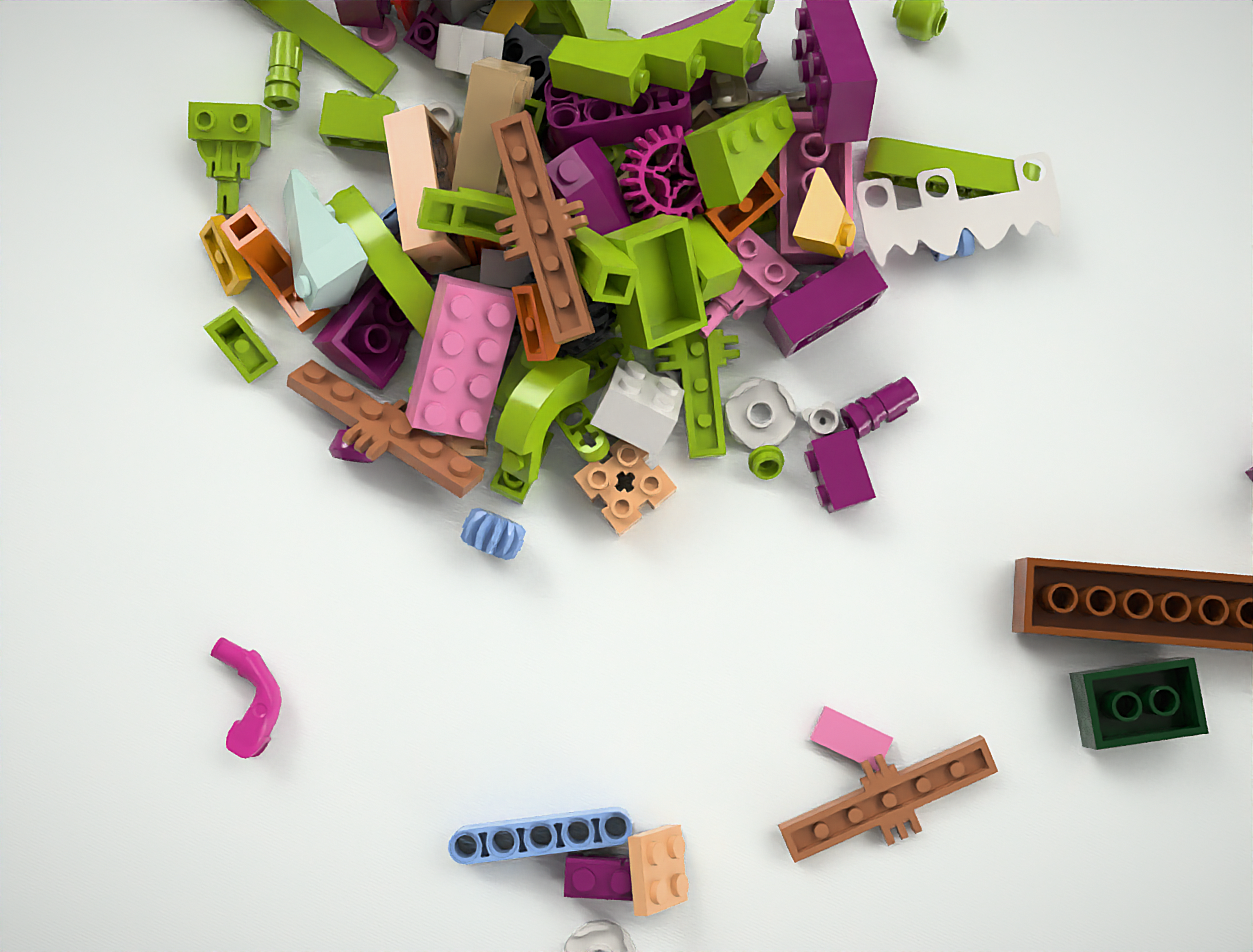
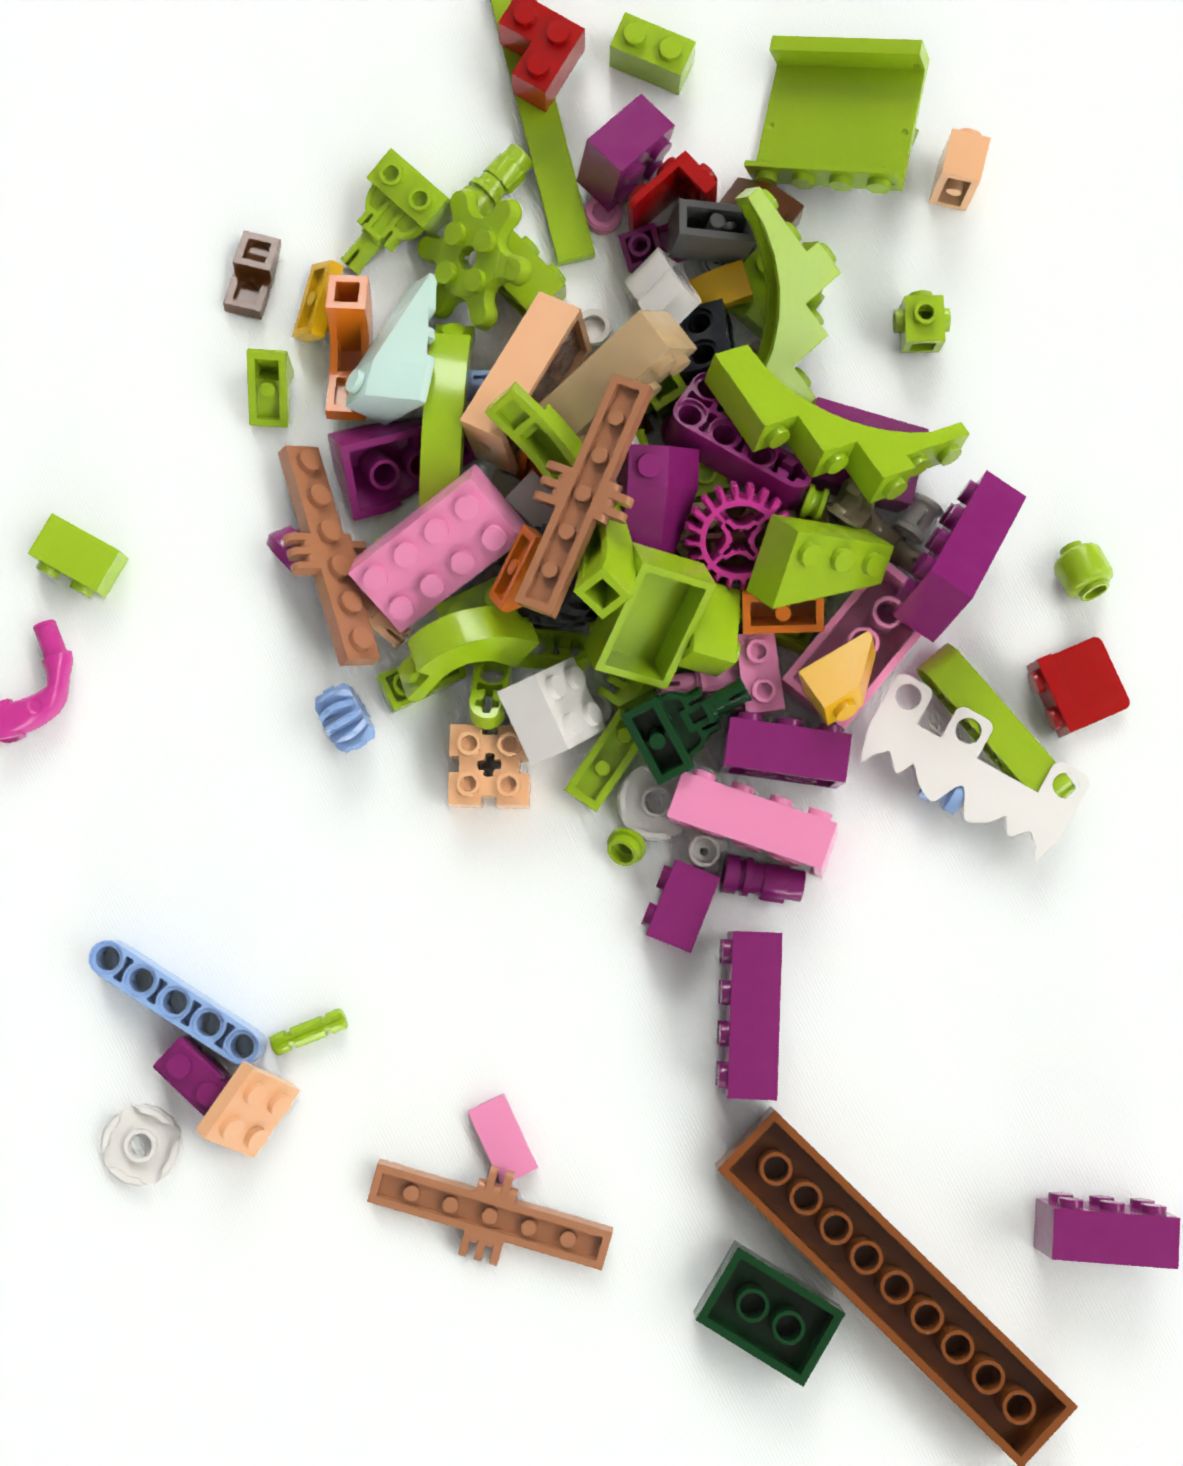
camera: 40 degrees right, 0 degrees up
(162, 275) = (253, 275): none -> slope
(201, 577) = (77, 555): none -> lime brick
(333, 127) = (493, 263): none -> lime plate
(651, 778) = (308, 1031): none -> lime axle
(703, 110) = (814, 503): none -> lime bush
(735, 344) = (674, 727): none -> dark green brick
(778, 70) = (918, 518): none -> white bush
(844, 368) = (754, 821): none -> bright pink wedge
(954, 506) = (751, 1015): none -> magenta brick
(983, 98) = (1077, 686): none -> red bracket

